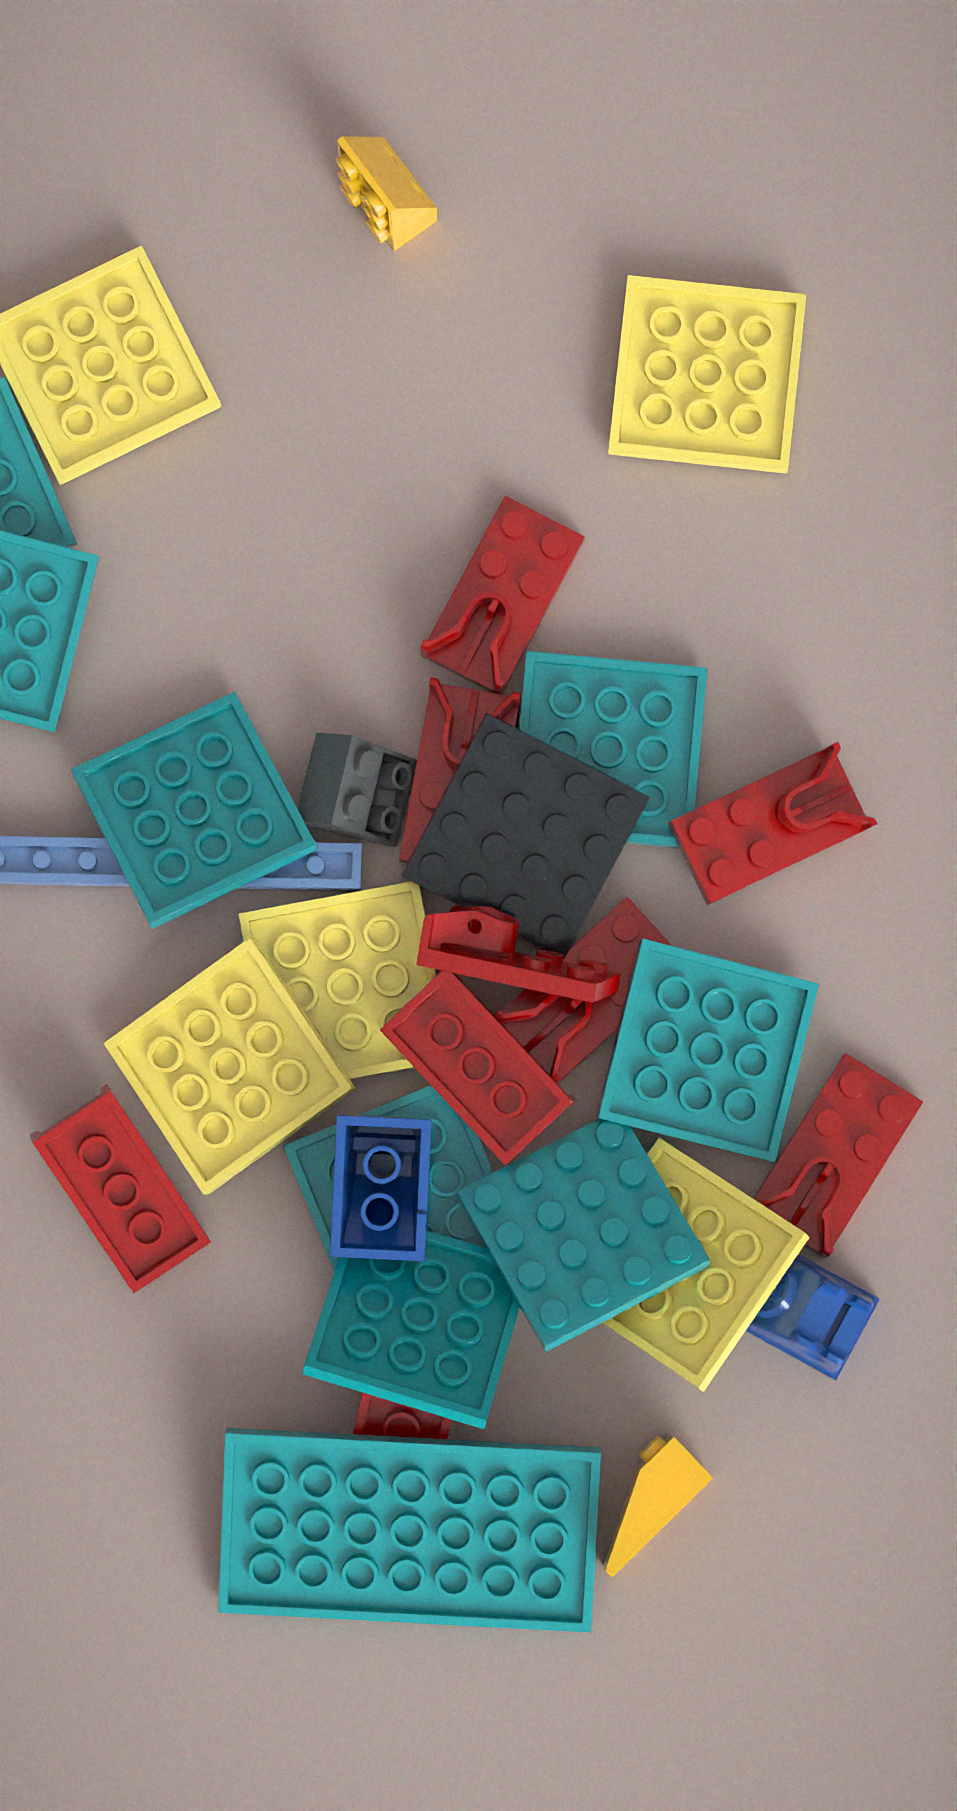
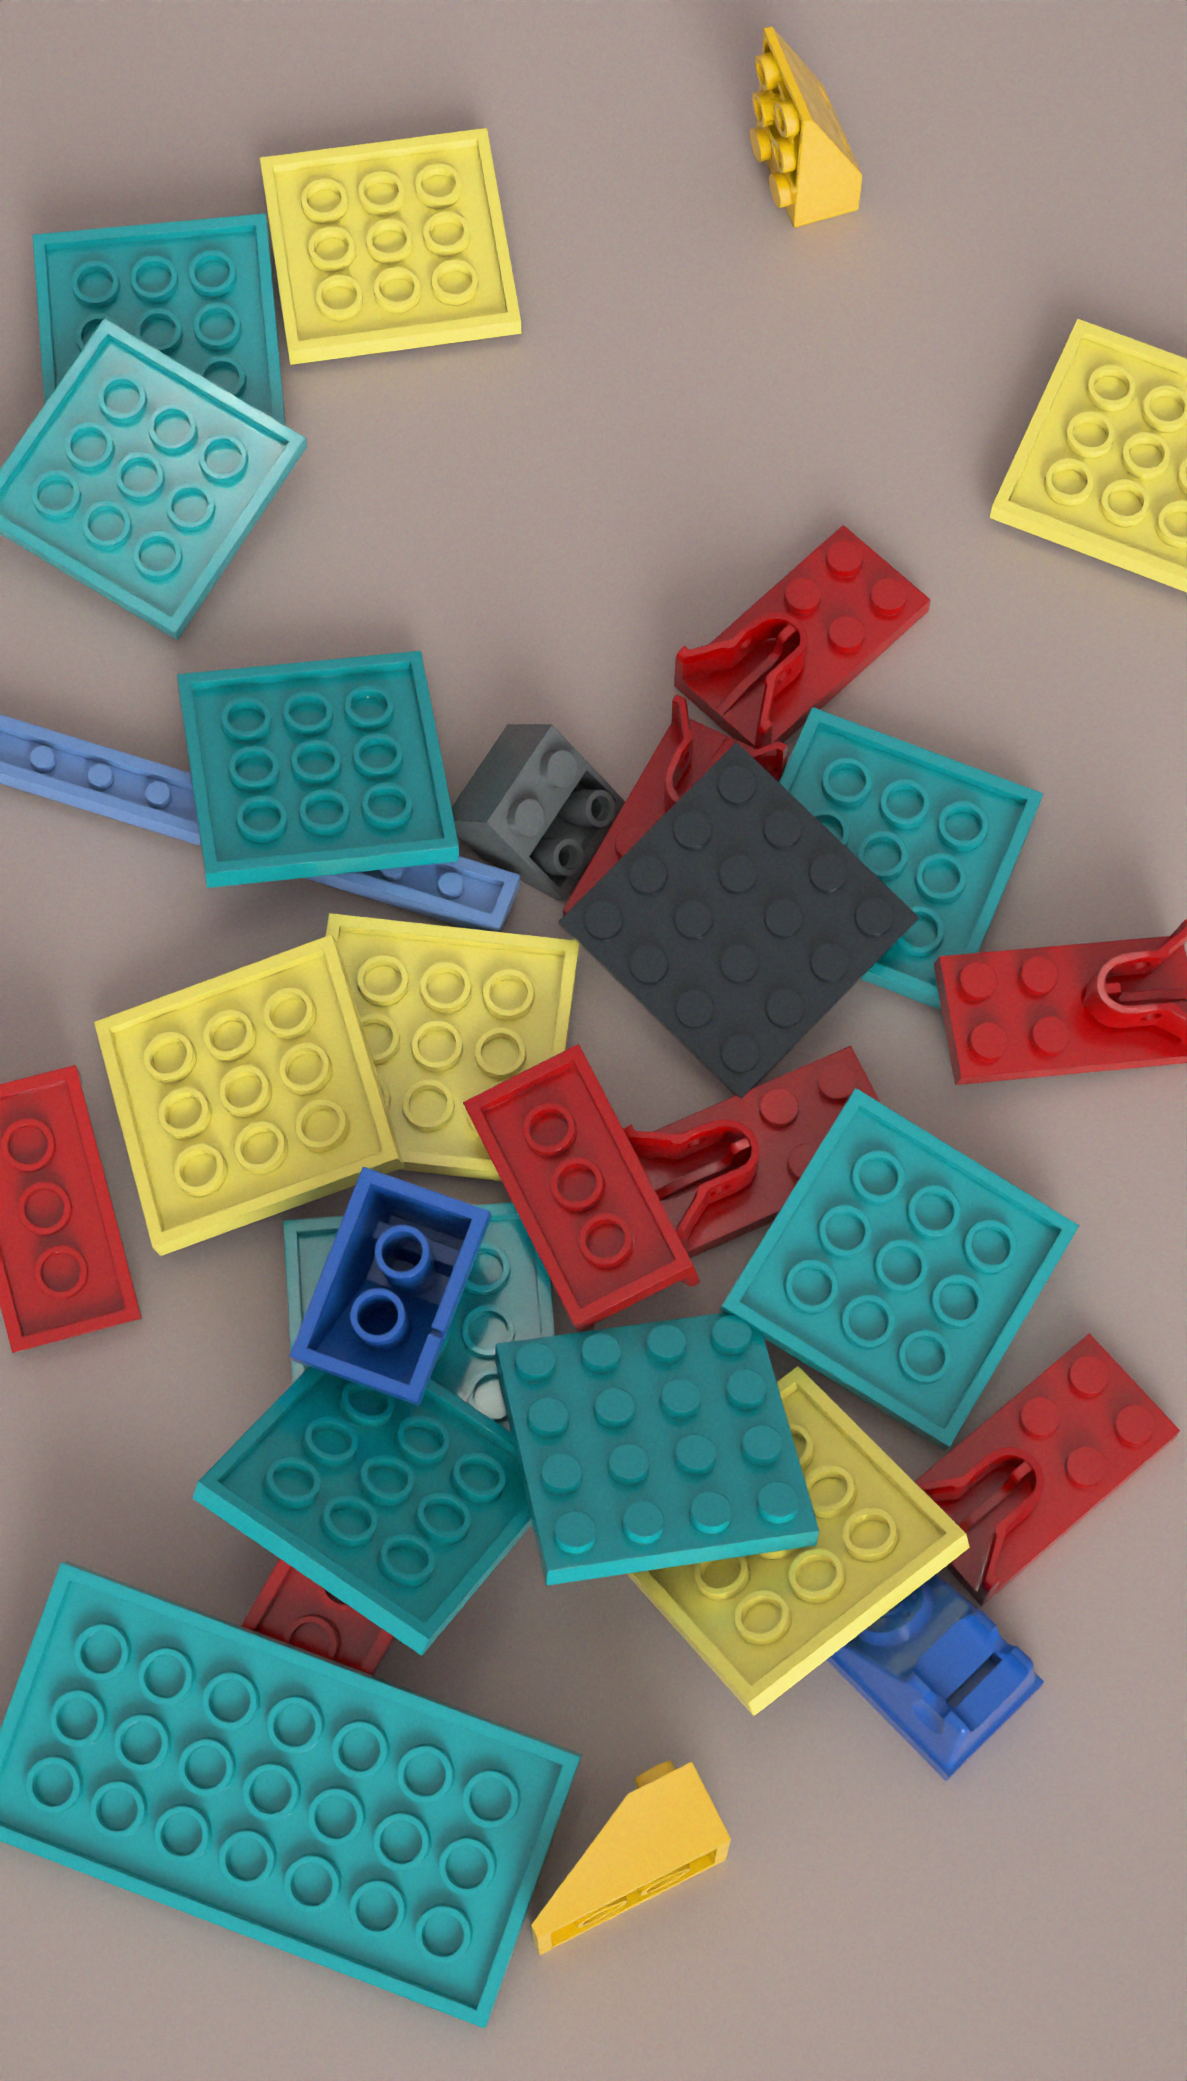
camera: 15 degrees right, 15 degrees down
(483, 945) = (640, 1034): red plate -> none

